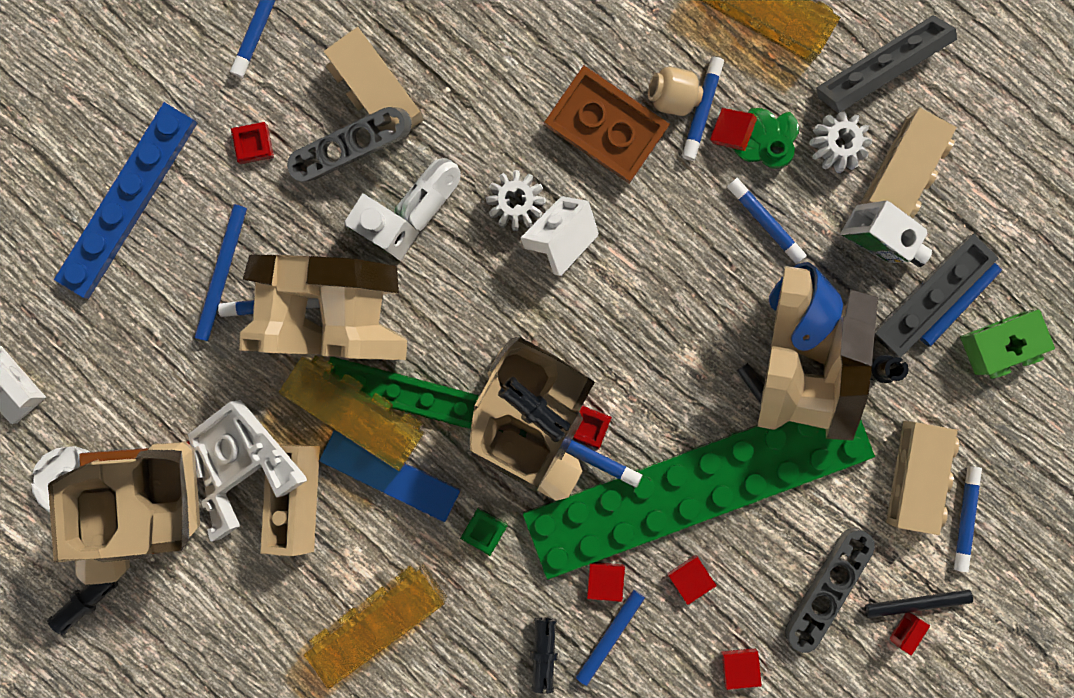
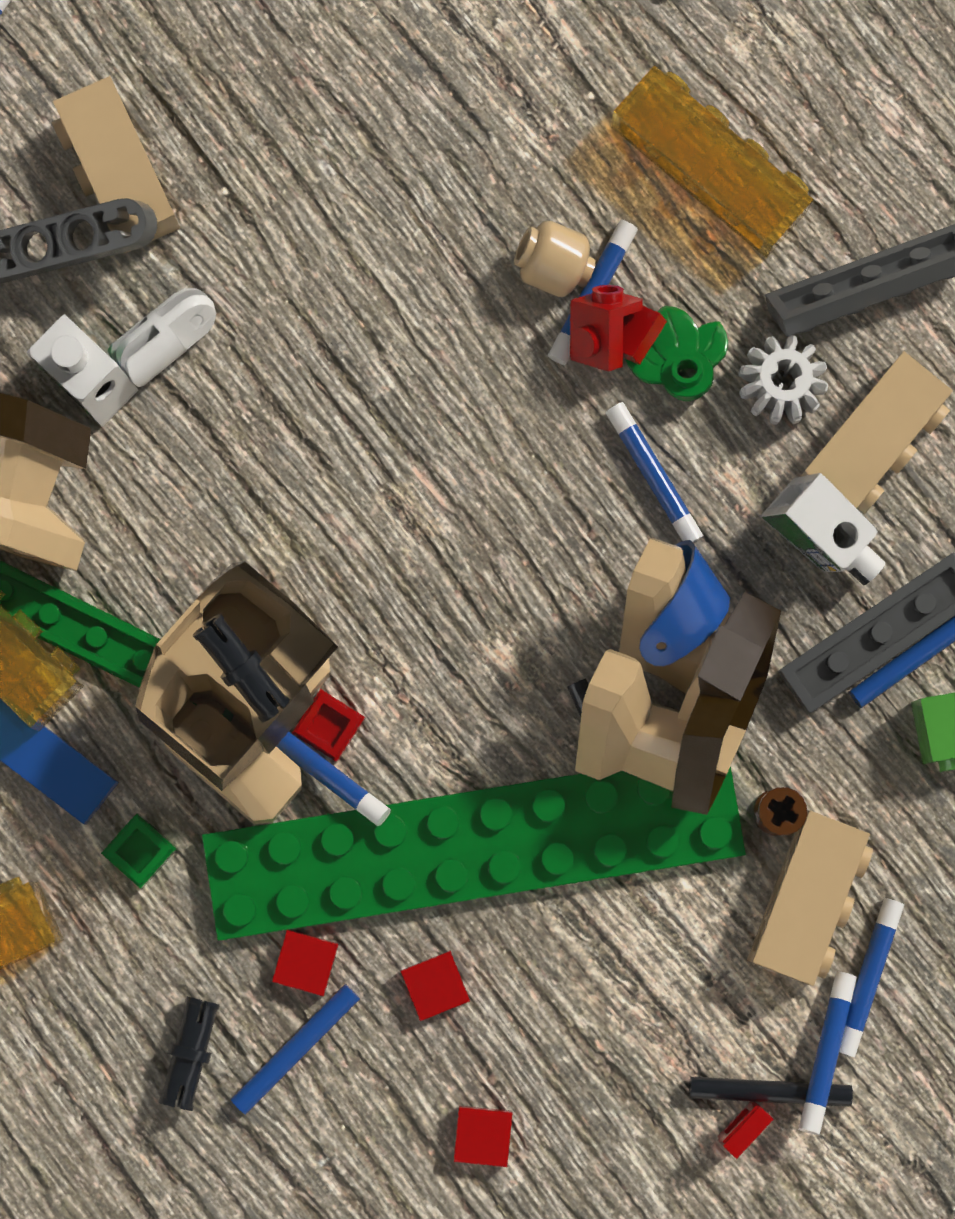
camera: 10 degrees right, 5 degrees down
(512, 189) = (289, 353): white gear -> none
(562, 232) = (346, 431): white panel -> none
(606, 124) = (445, 287): dark orange plate -> none
(714, 130) = (598, 326): none -> red bracket
(835, 592) = (646, 1048): dark grey beam -> none
(888, 369) = (791, 726): black pin -> none
(898, 417) = (796, 808): none -> reddish brown bush
(952, 573) = (827, 1053): none -> blue bar

